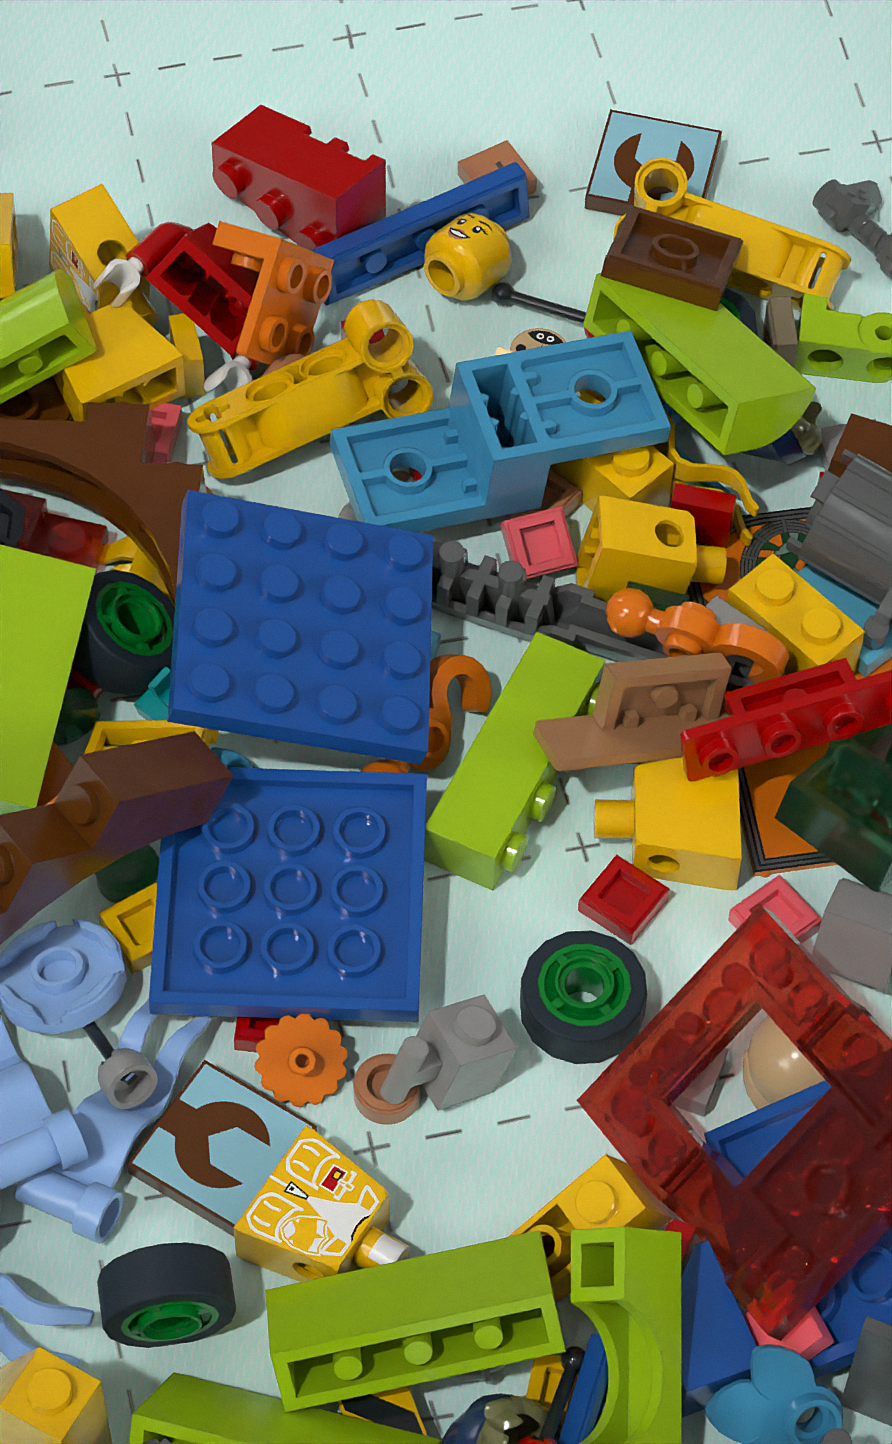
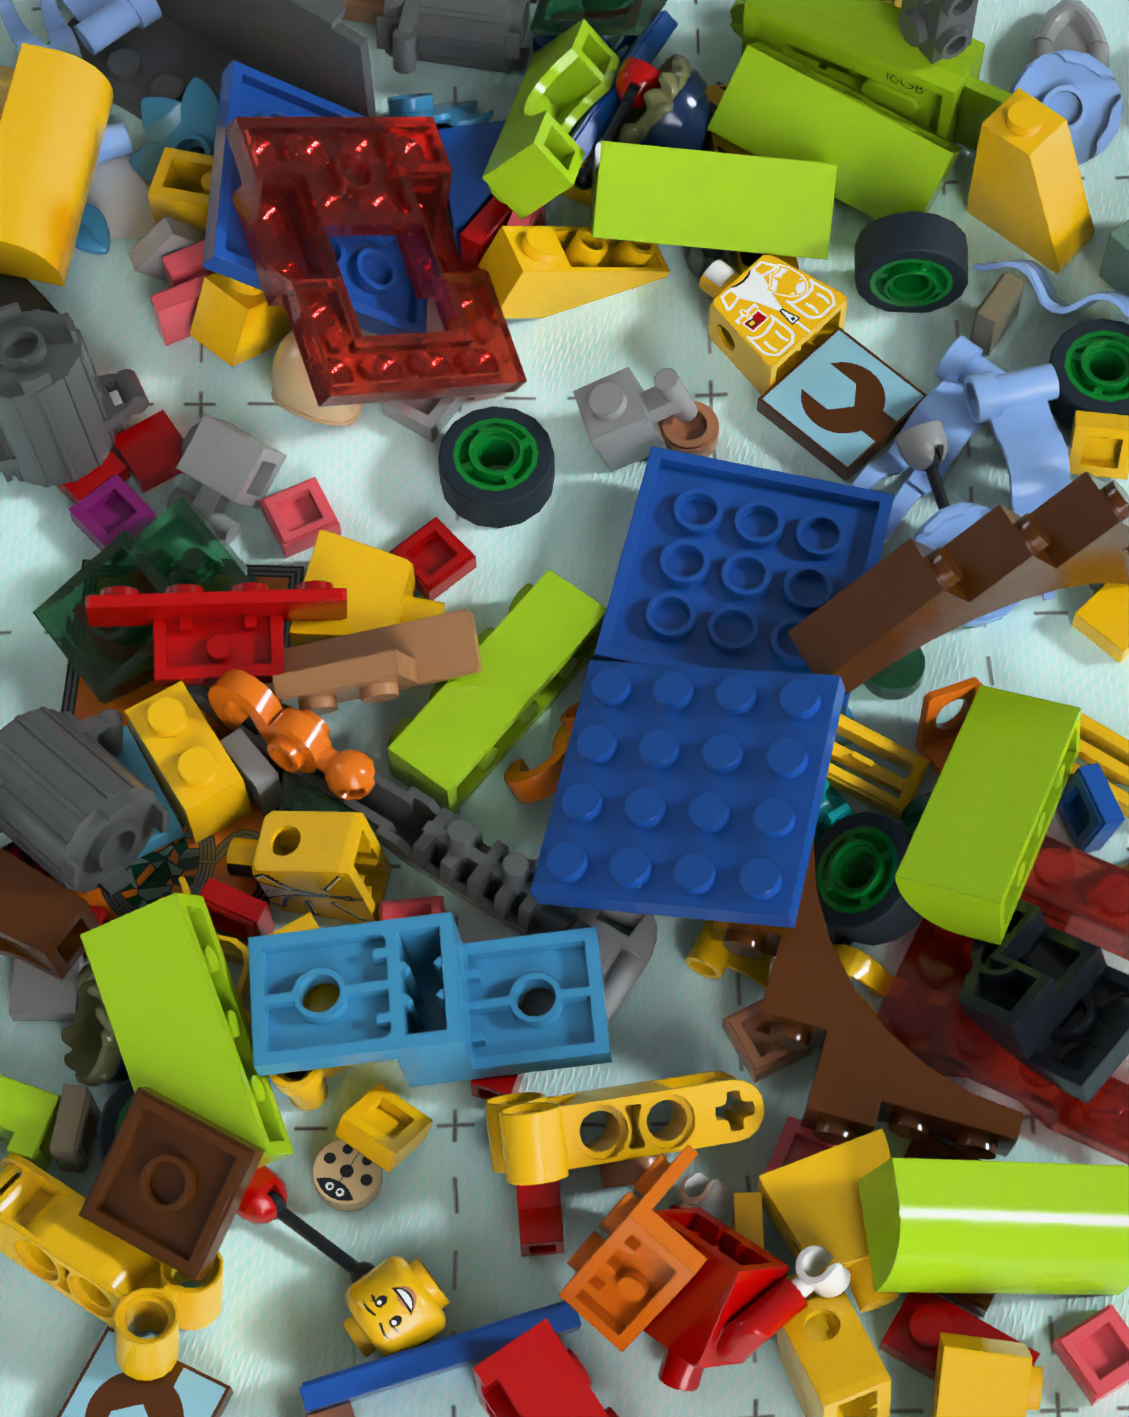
camera: 165 degrees left, 5 degrees up
(61, 1269) = (997, 312): none -> dark tan tile
(301, 1059) = (763, 451): orange piece -> none

